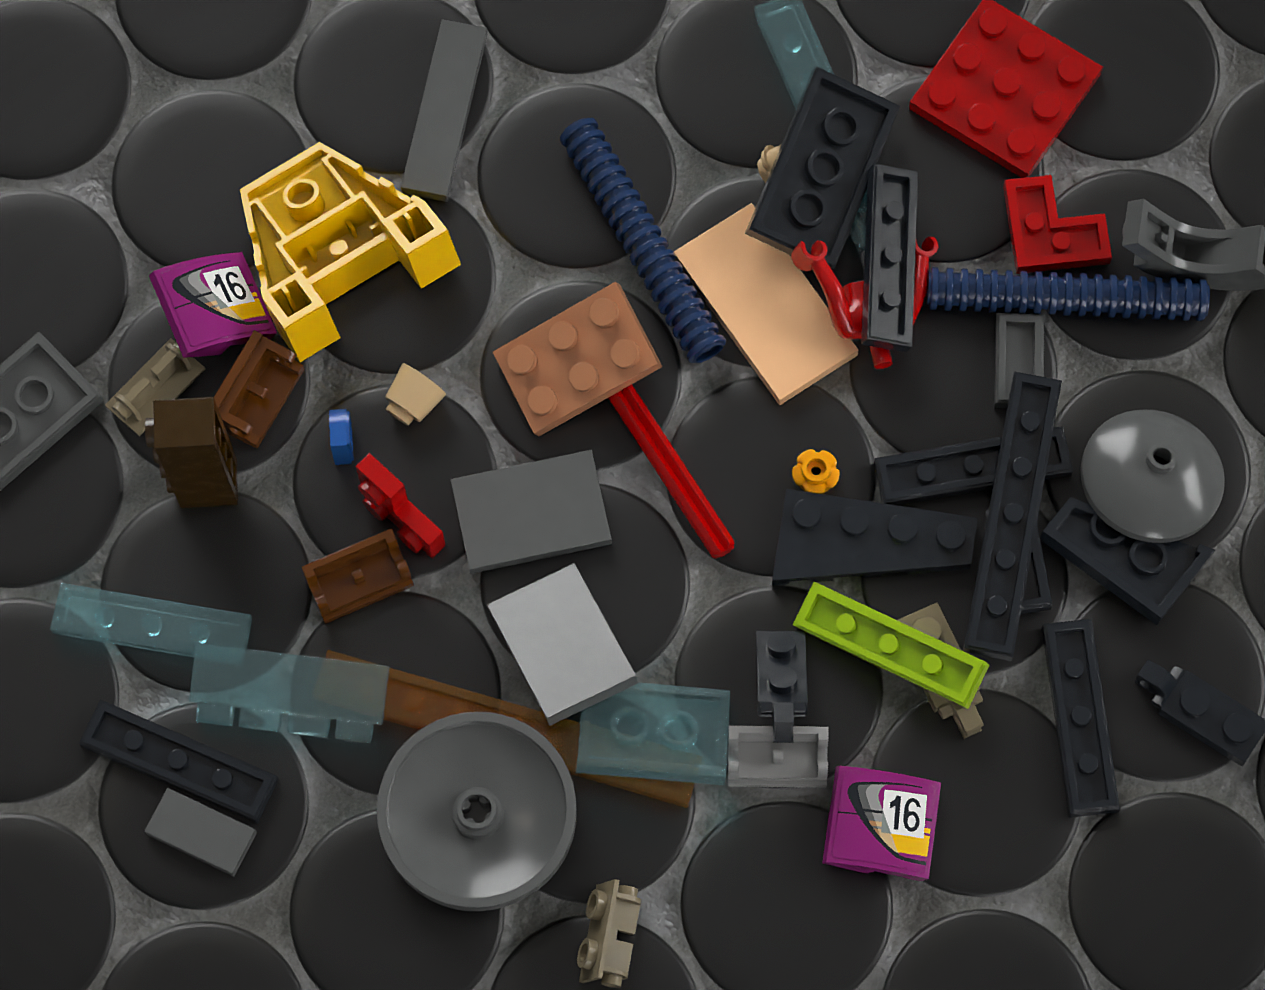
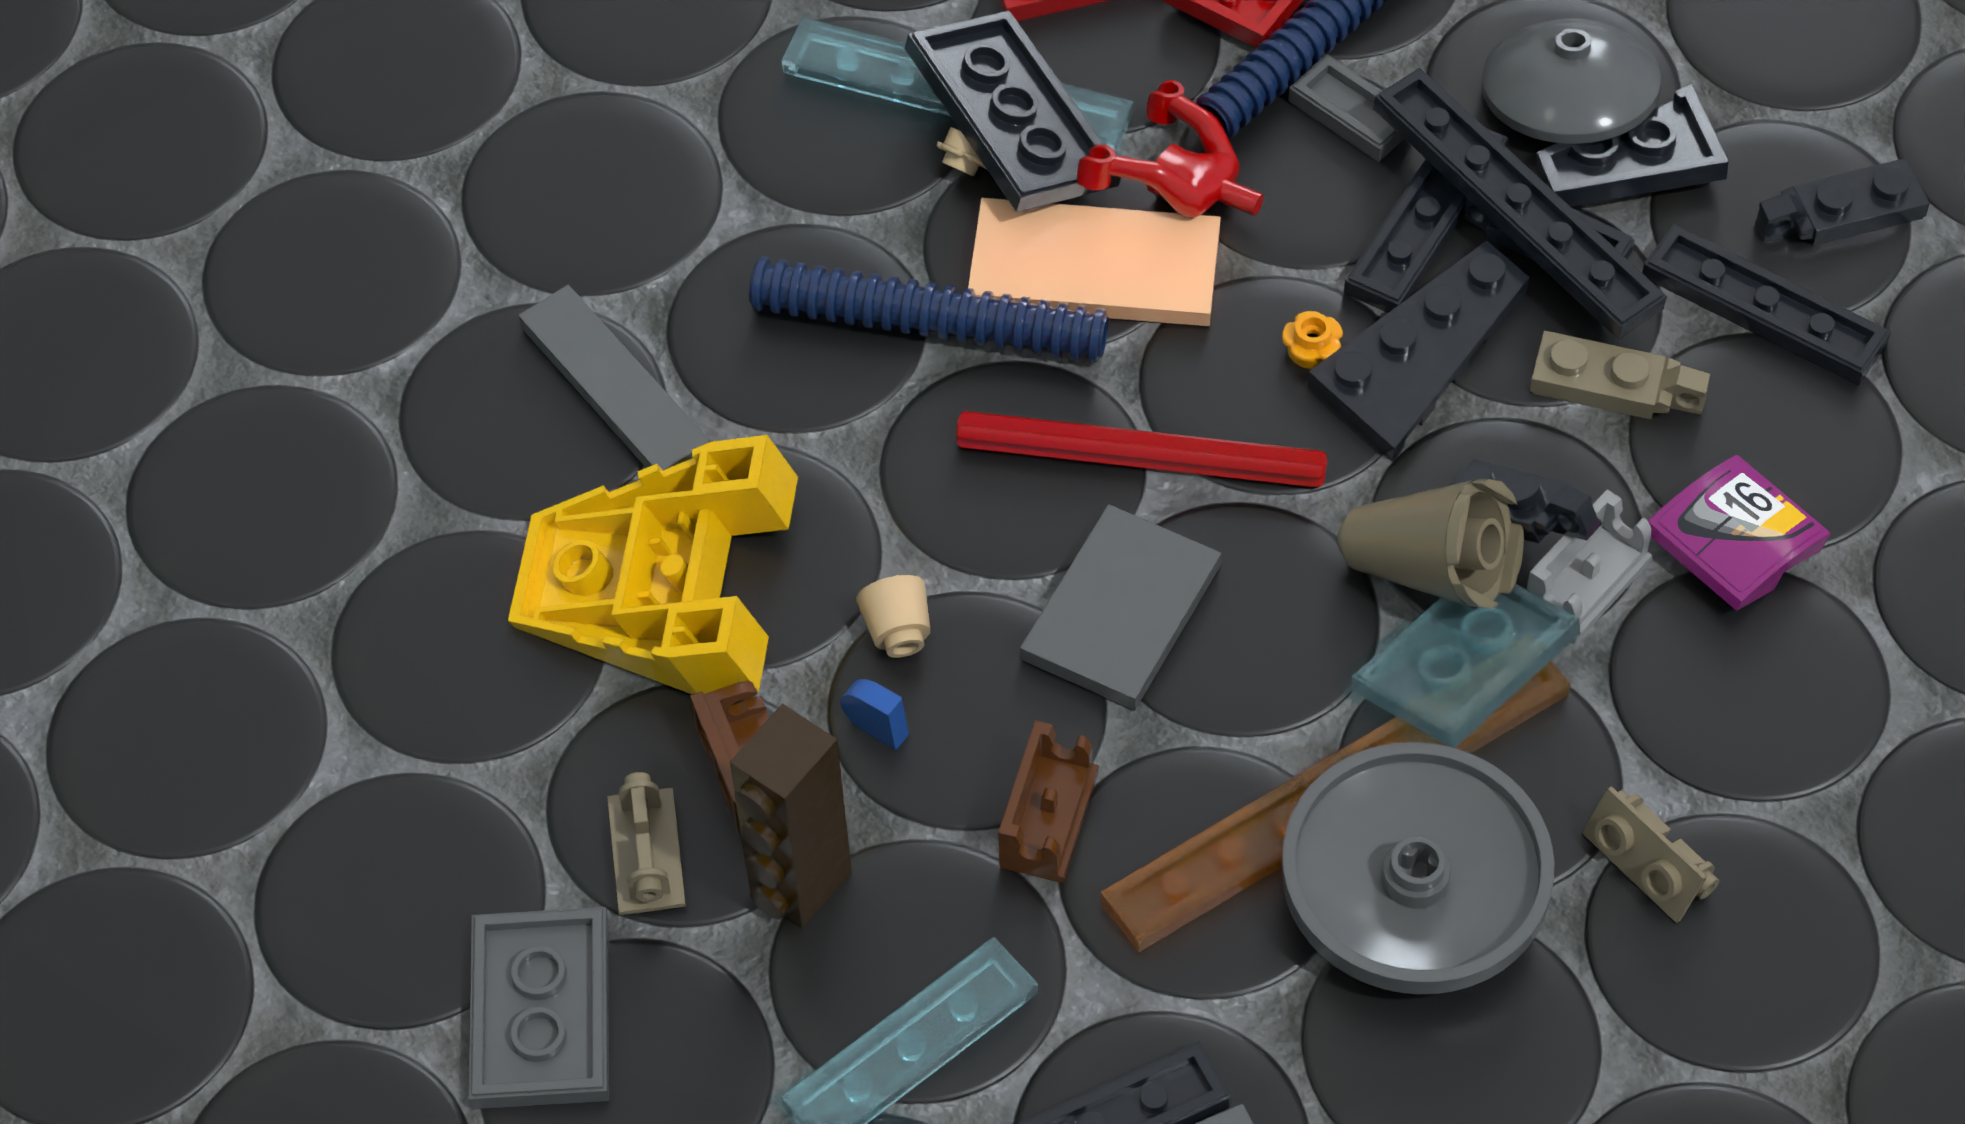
camera: 50 degrees left, 15 degrees down
(211, 303) = (614, 722): magenta slope -> none
(280, 683) = (1096, 963): clear light blue windscreen -> none
(388, 498) = (996, 711): red plate -> none
(562, 644) = (1298, 668): tile -> none
(577, 359) = (1003, 444): nougat plate -> none
(706, 662) = (1440, 541): none -> dark tan cone
(889, 258) = (1160, 117): black tile -> none
(891, 645) = (1558, 391): lime tile -> none

